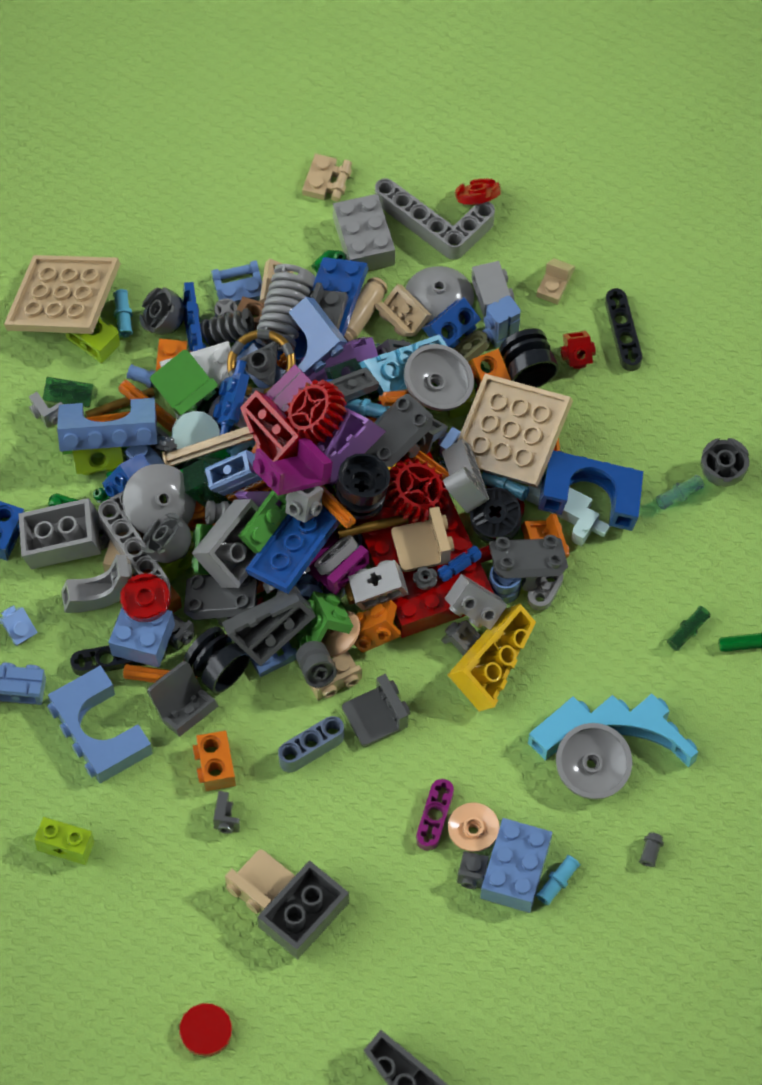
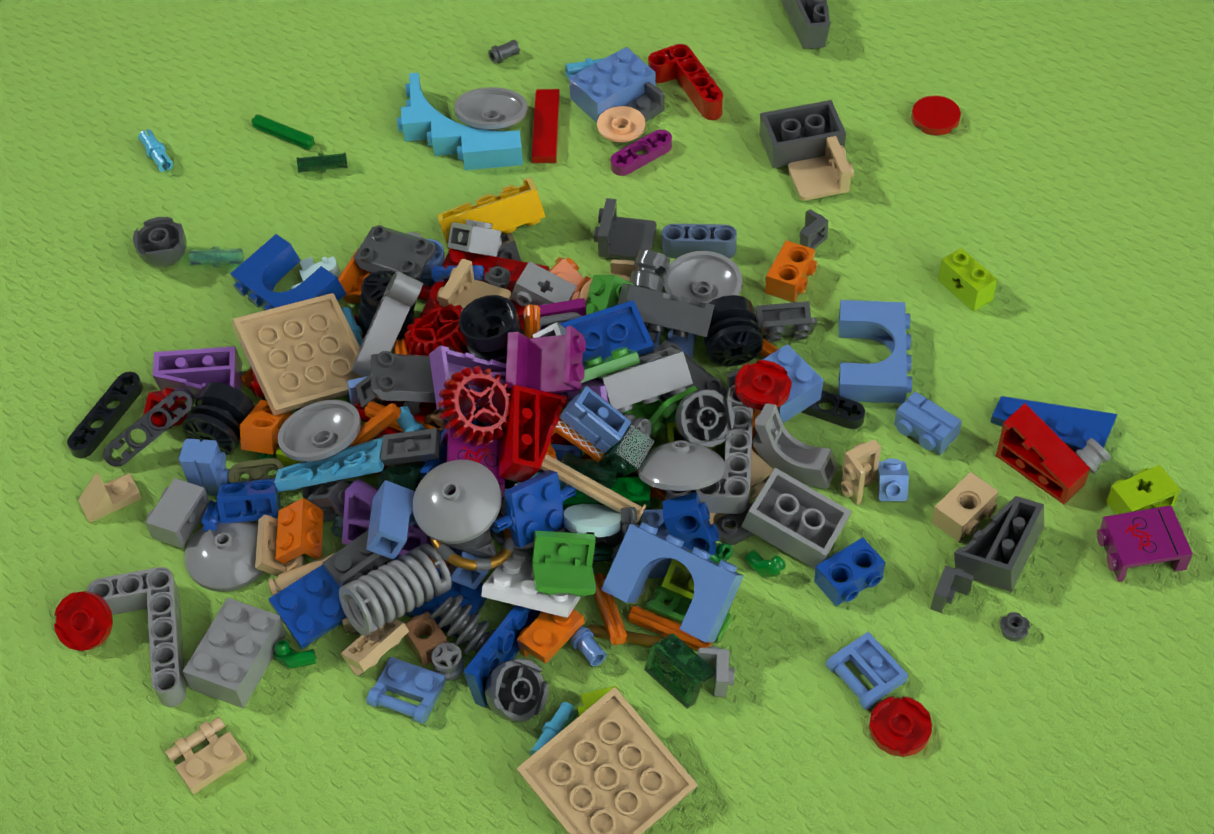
camera: 140 degrees left, 10 degrees down
(41, 600) = (860, 469): none -> tan bracket
(270, 682) = (703, 277): none -> light grey dish
(279, 358) = (462, 514): none -> light grey dish
(393, 320) = (299, 531): none -> orange bracket
(451, 917) = (681, 64): none -> red beam
(458, 288) = (211, 517): none -> blue axle
(542, 792) = (546, 126): none -> red tile
(569, 322) = (149, 427): none -> black beam
(584, 383) = (197, 367): none -> medium lavender wedge

